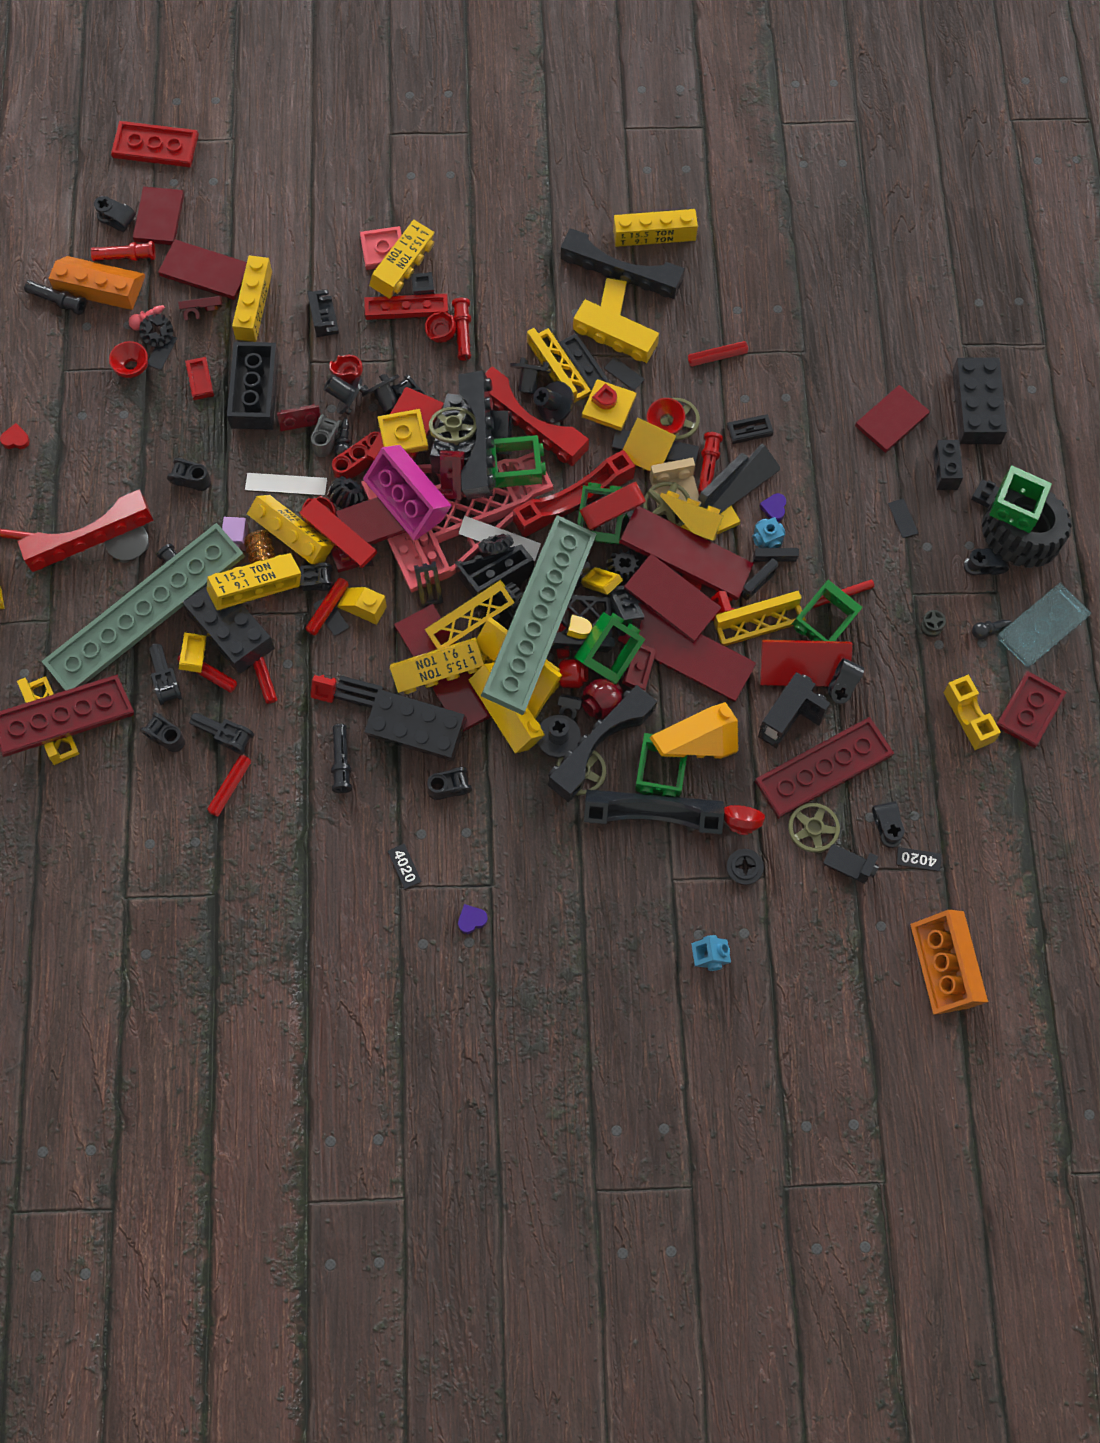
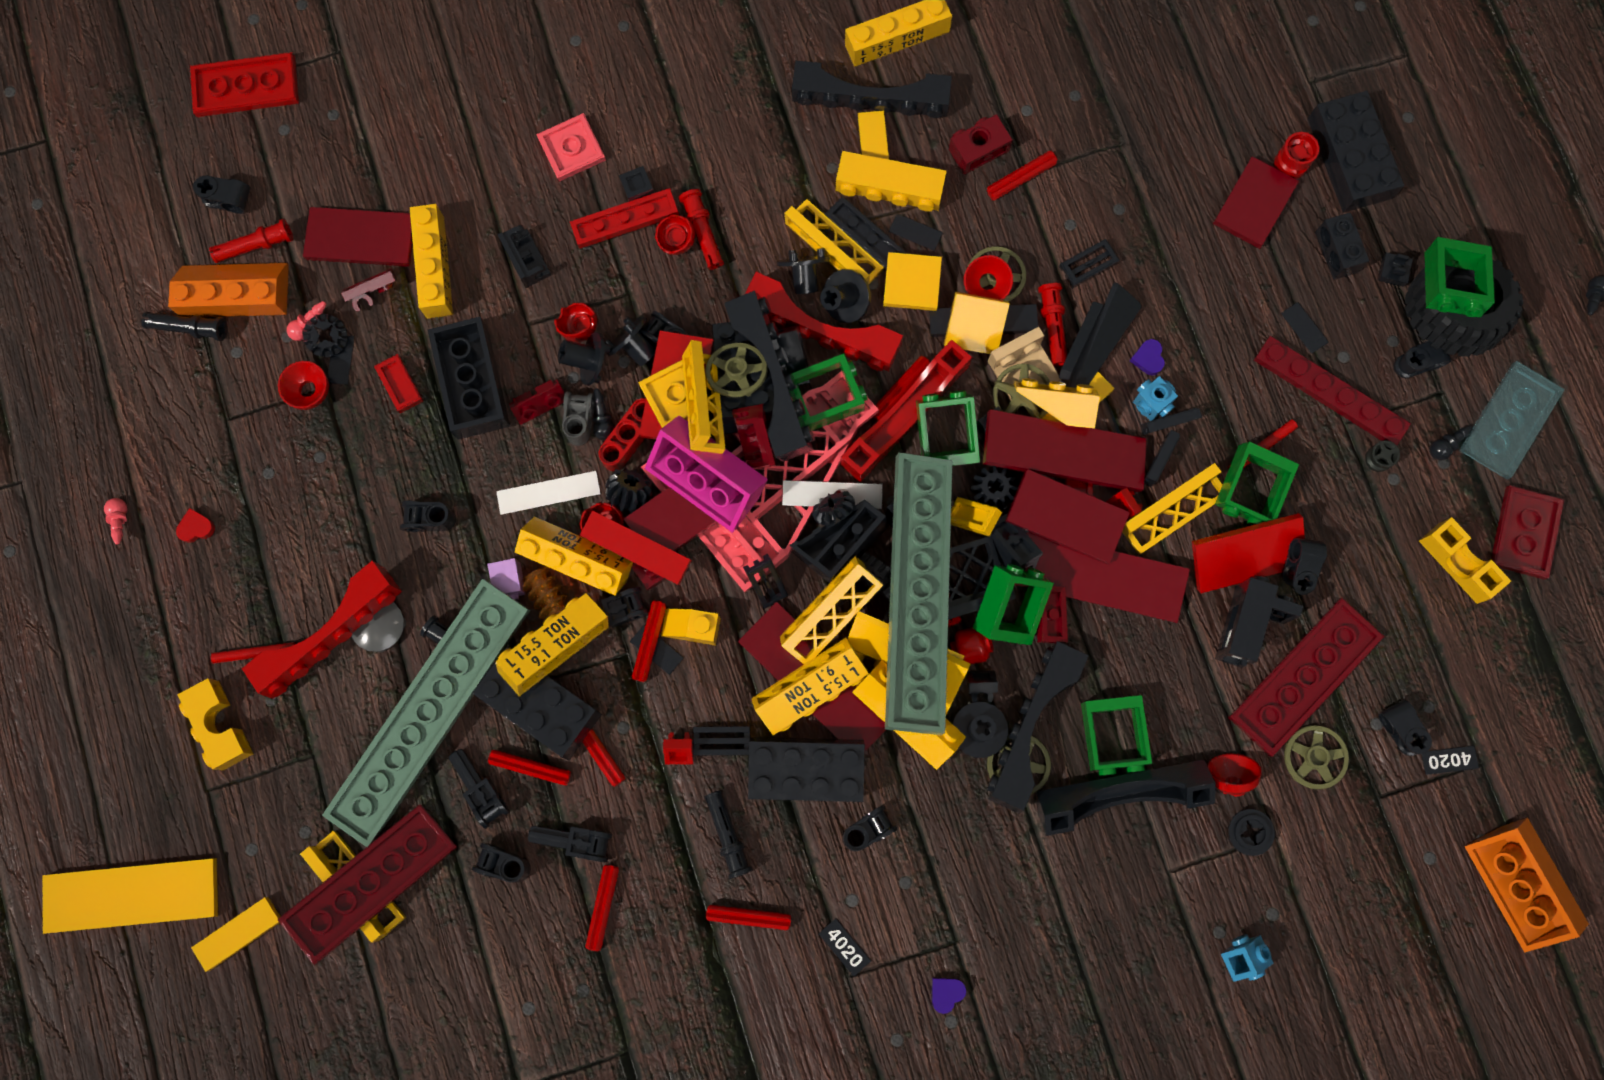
camera: 10 degrees left, 10 degrees up
(158, 215) = (279, 180): dark red tile -> none
(192, 652) = (504, 751): yellow tile -> none
(337, 822) = (748, 917): none -> red axle
(401, 259) = (601, 158): yellow brick -> none
(416, 438) = (698, 403): none -> yellow fence
(569, 481) = (901, 386): none -> red axle
(579, 627) = (968, 591): yellow tile -> none
(601, 698) = (1018, 667): dark red plant -> none
(605, 397) = (907, 274): red tile -> none
(612, 505) = (963, 421): red beam -> none
(703, 325) = (972, 156): none -> dark red brick
(705, 733) = (1156, 686): light orange wedge -> none
(851, 864) = (1377, 793): black bracket -> none
(909, 568) = (1331, 391): none -> dark red plate
(932, 390) = (1297, 154): none -> red wheel

